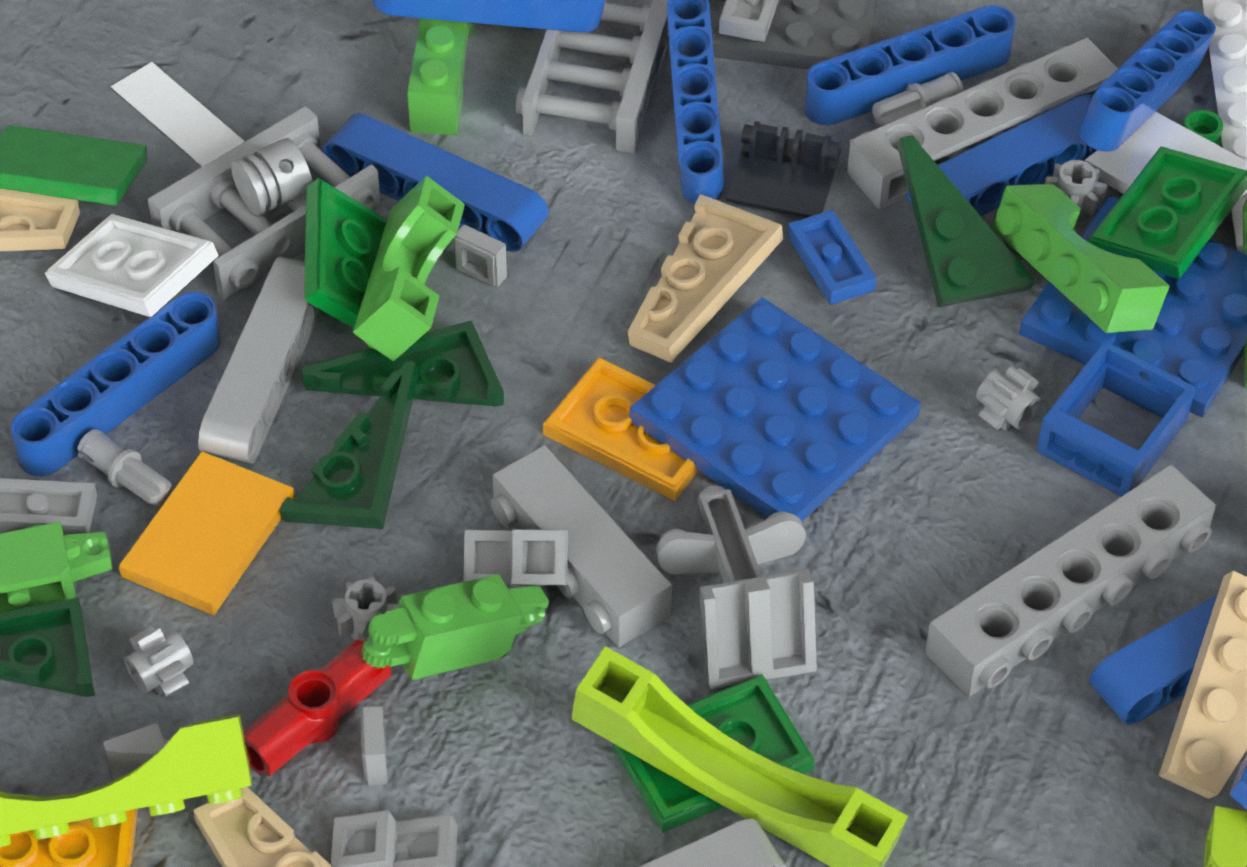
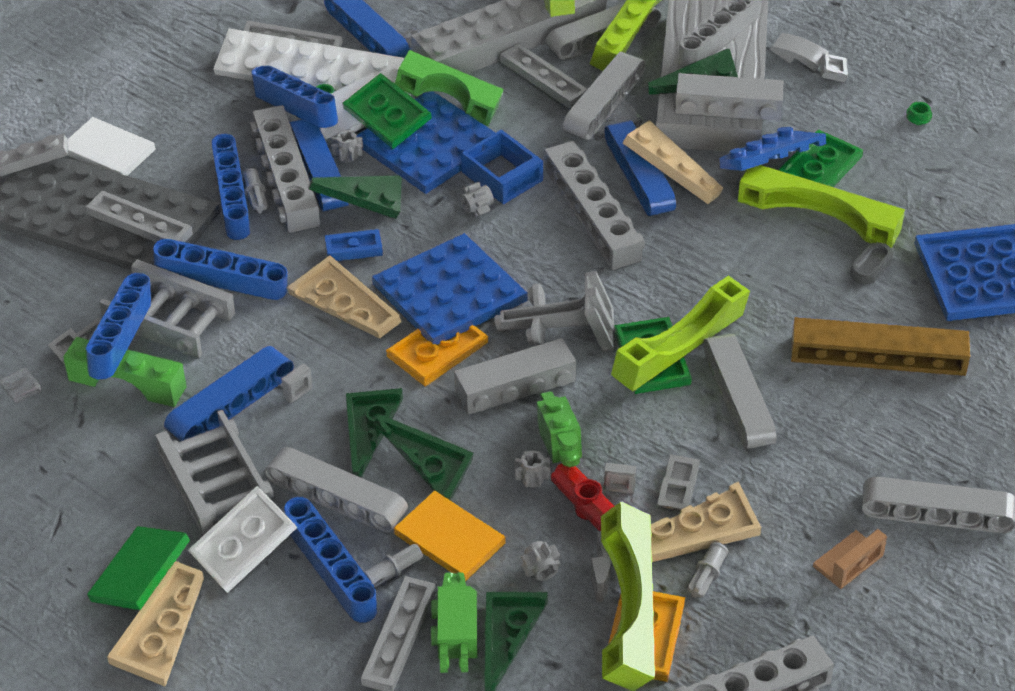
camera: 75 degrees left, 5 degrees down
(177, 114) = (117, 510): white sticker -> none
(271, 176) = (214, 452): light grey piece -> none
(339, 250) = (284, 434): green tile -> none
(396, 300) = (275, 400): bright green arch -> none
(517, 556) = (520, 398): light grey slope -> none
(783, 171) = (286, 249): black hinge -> none
(1107, 287) = (430, 140): bright green arch -> none

